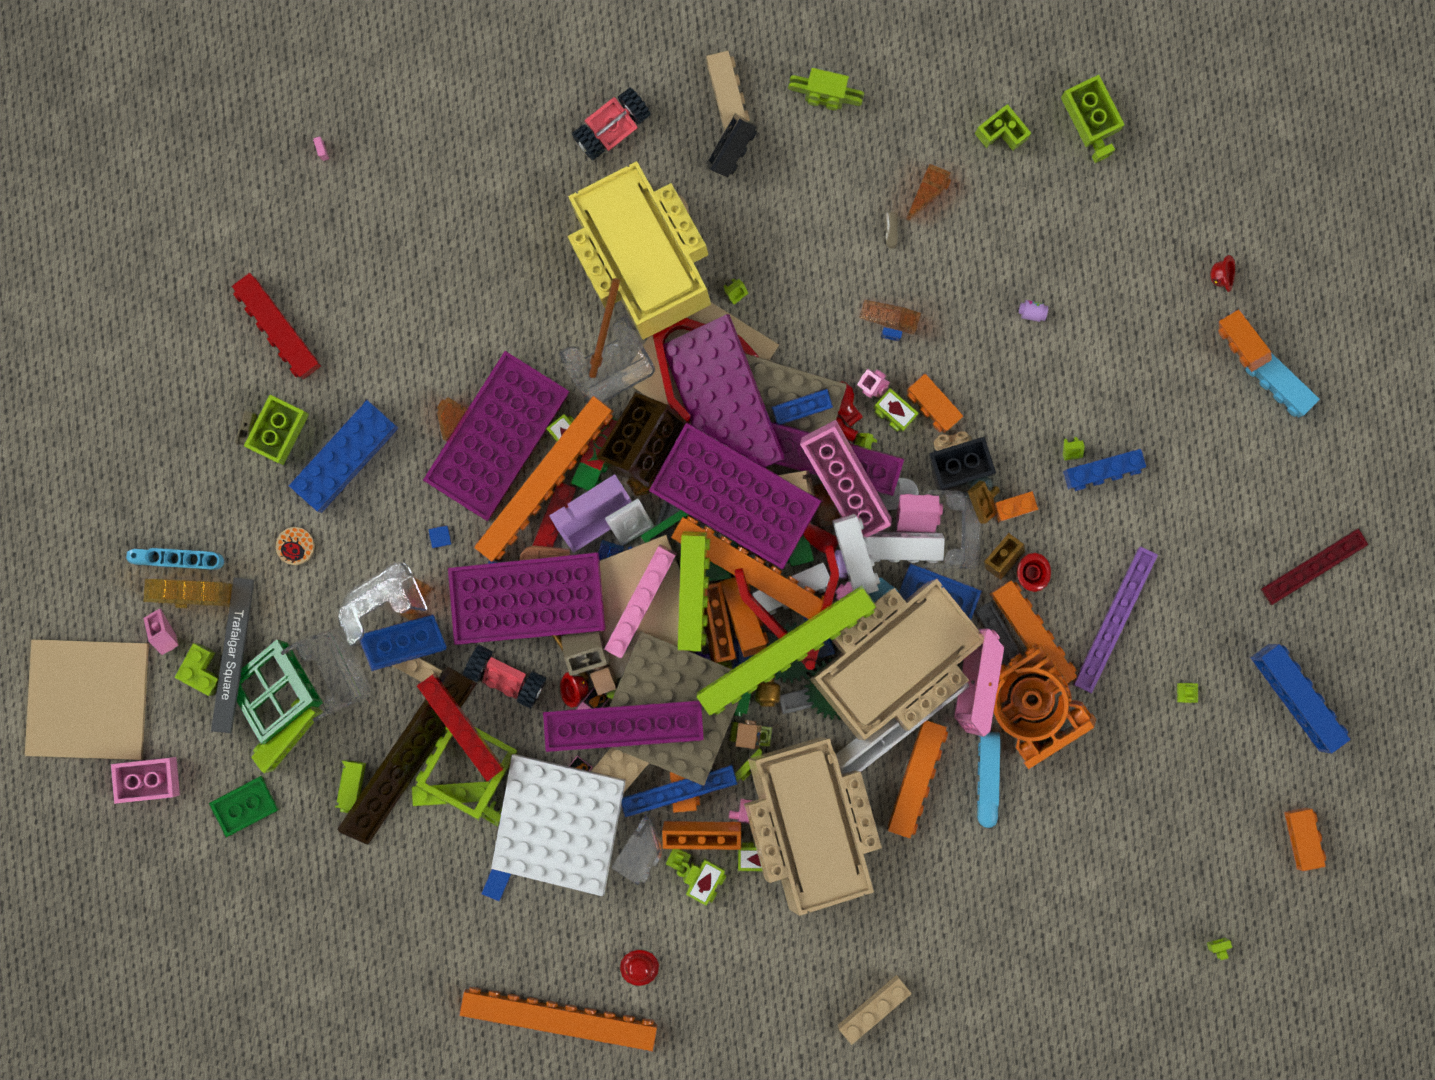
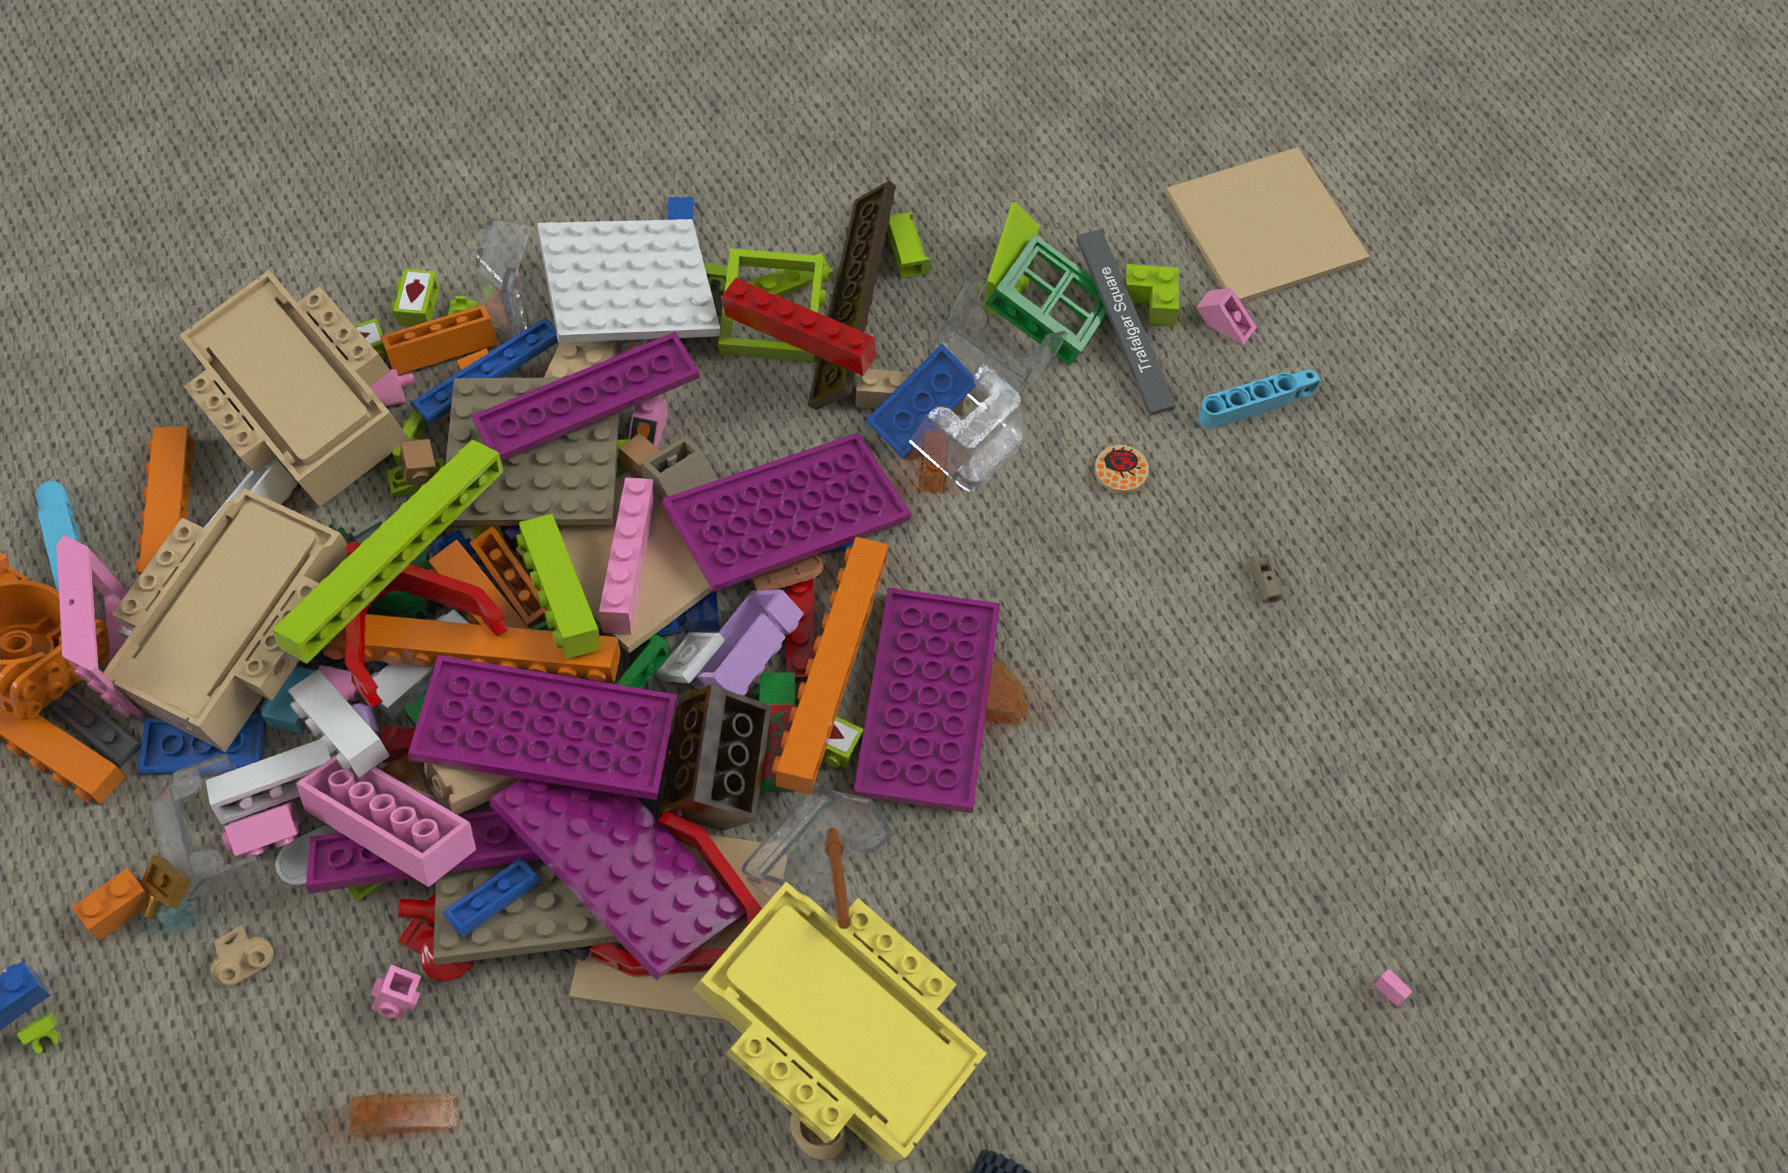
camera: 155 degrees right, 25 degrees down
(145, 780) = (1147, 165): bright pink brick -> none
(187, 592) = (1219, 359): clear yellow brick -> none
(243, 806) = (1022, 182): green tile -> none
(276, 326) = (1306, 716): red brick -> none
(276, 430) = (1225, 585): lime brick -> none
(343, 456) = (1118, 591): blue brick -> none
(440, 536) = (941, 550): blue tile -> none
(504, 677) = (733, 415): plate -> none
(558, 1019) = (541, 112): orange brick -> none
(573, 689) = (673, 431): red hat -> none
(639, 967) = (466, 193): red hat -> none
(690, 873) = (439, 299): lime tile -> none
(735, 291) = (667, 1047): lime tile -> none
(864, 440) = (383, 902): lime tile -> none
(874, 1009) = (147, 243): tan brick -> none
(891, 334) = (392, 1084): blue tile -> none
(895, 411) = (347, 969): brick -> none
(934, 404) = (289, 1005): orange brick -> none
(961, 464) = (212, 925): black slope -> none
(1004, 556) = (111, 825): pearl gold brick -> none
(1034, 572) = (58, 820): red hat -> none

